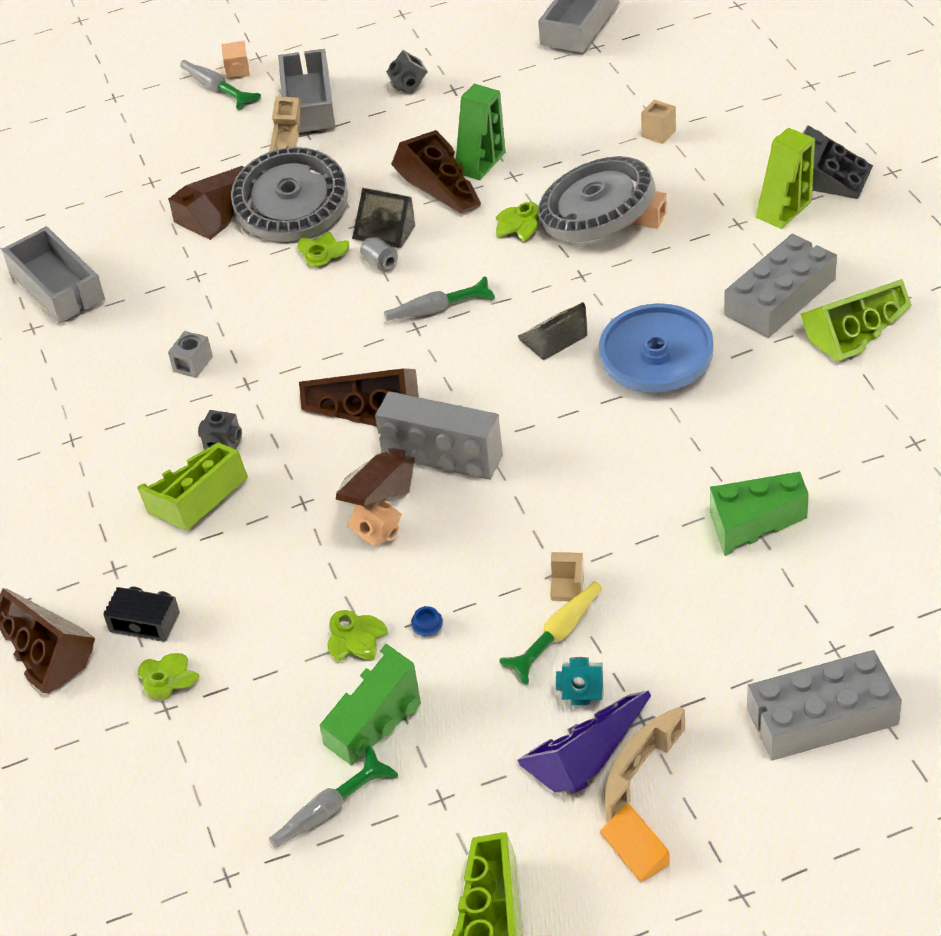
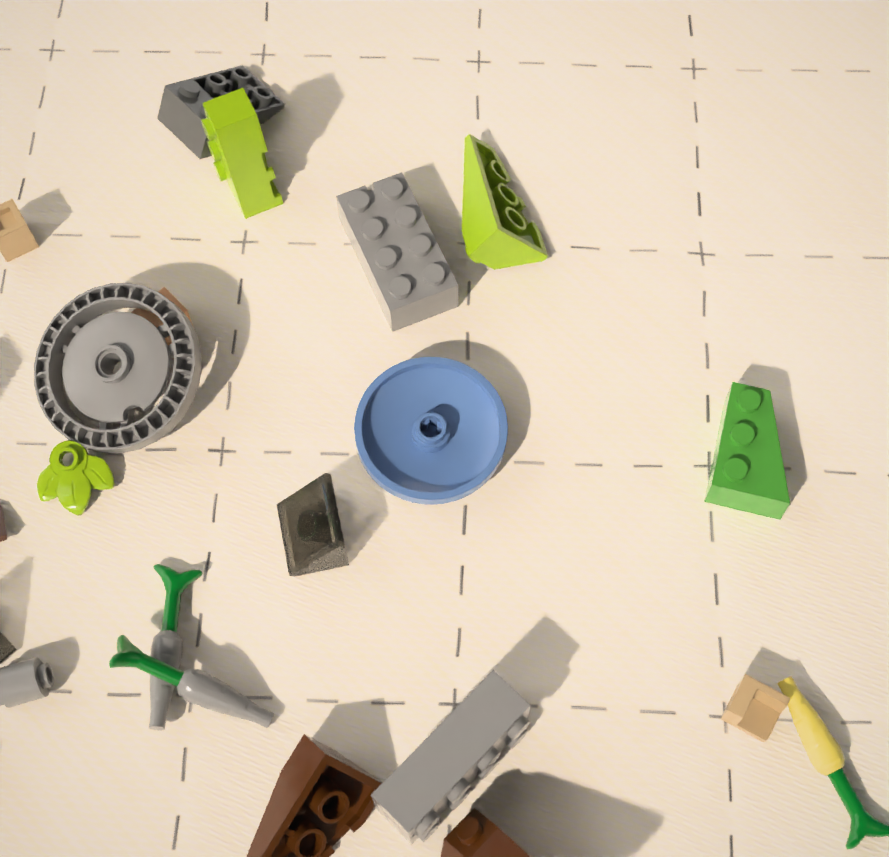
camera: 70 degrees left, 20 degrees up
(418, 315) = (192, 684): none -> light grey piece

